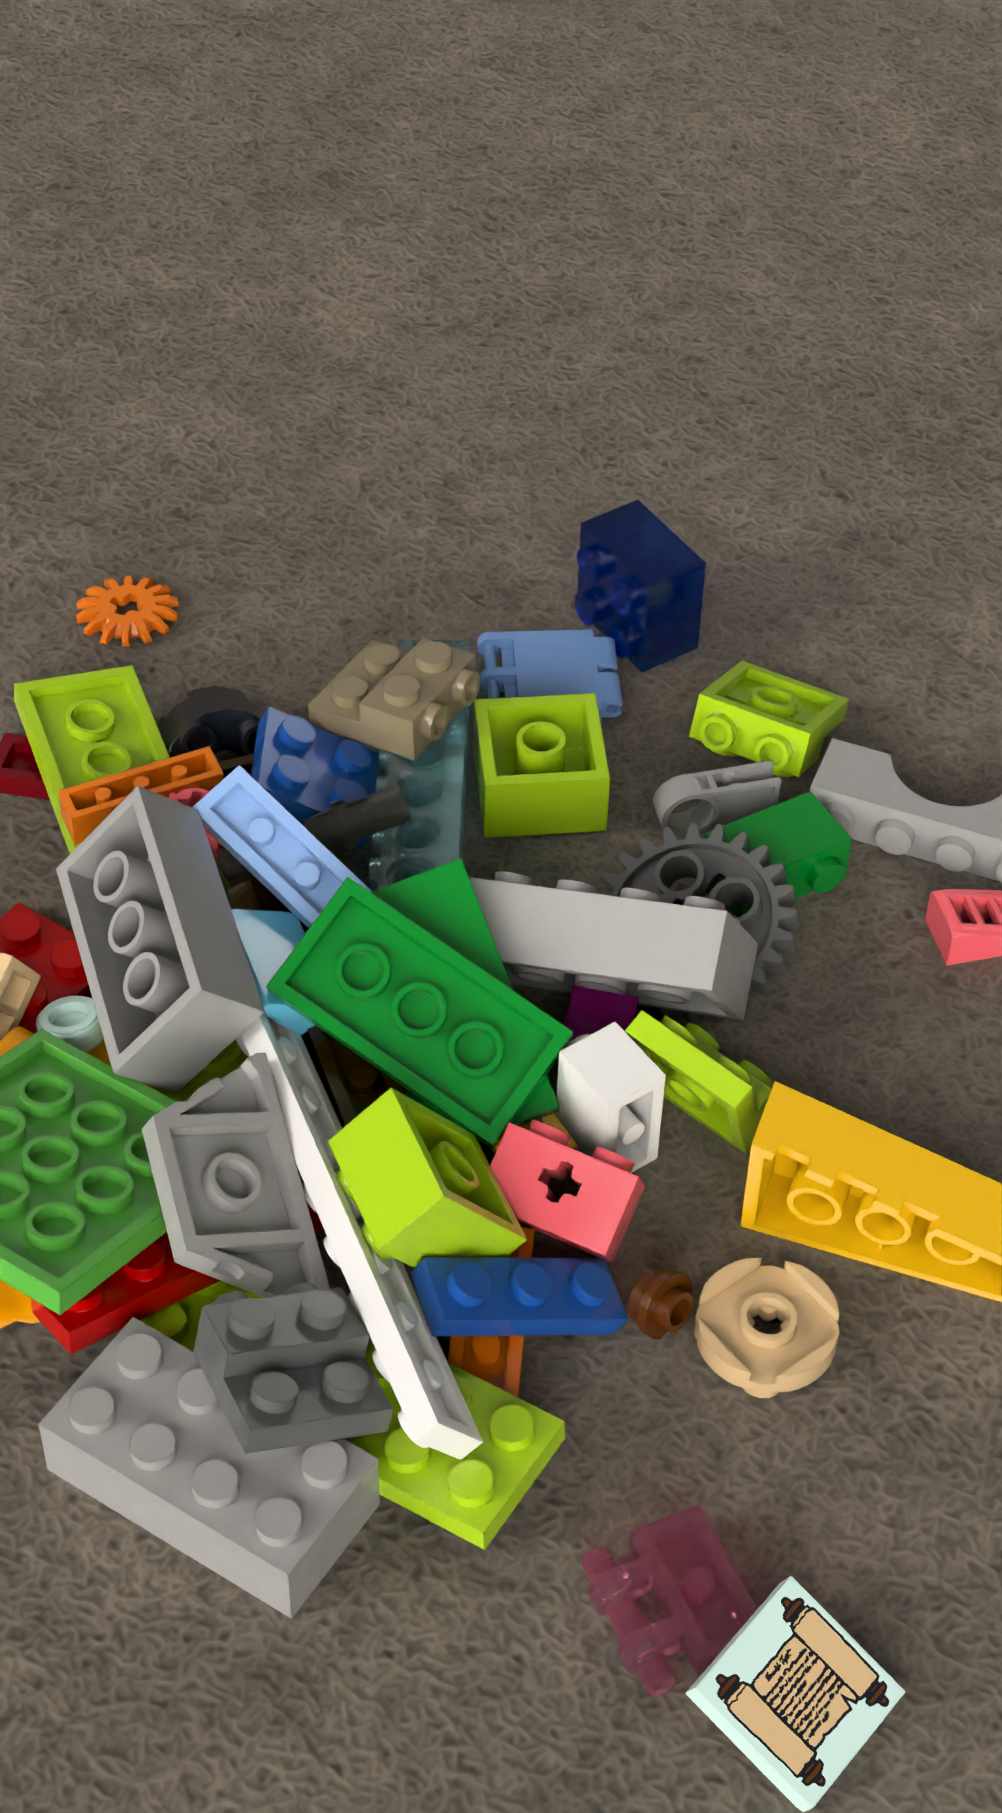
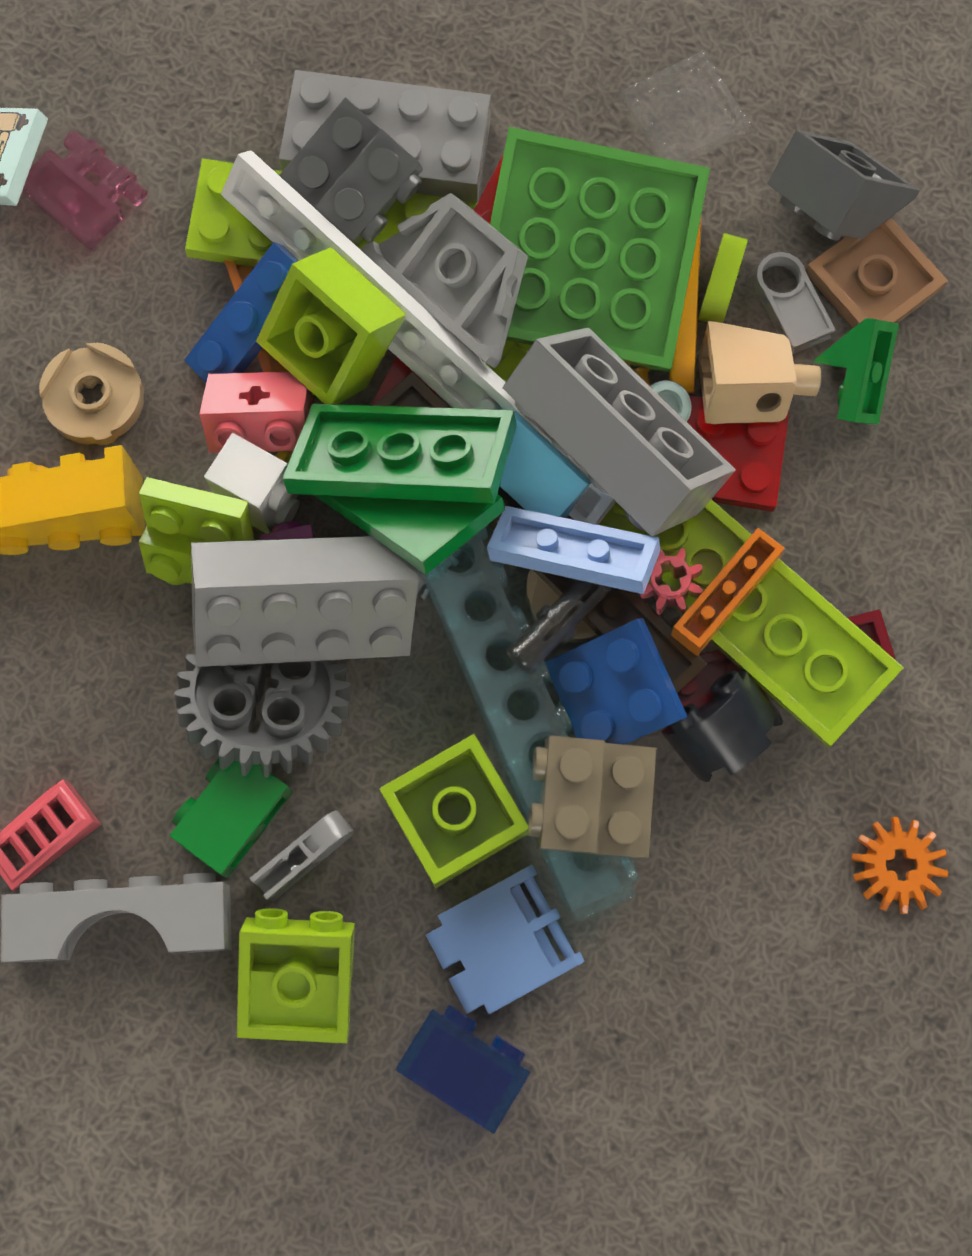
camera: 155 degrees right, 30 degrees up
(661, 1302) = (164, 376): reddish brown plate -> none

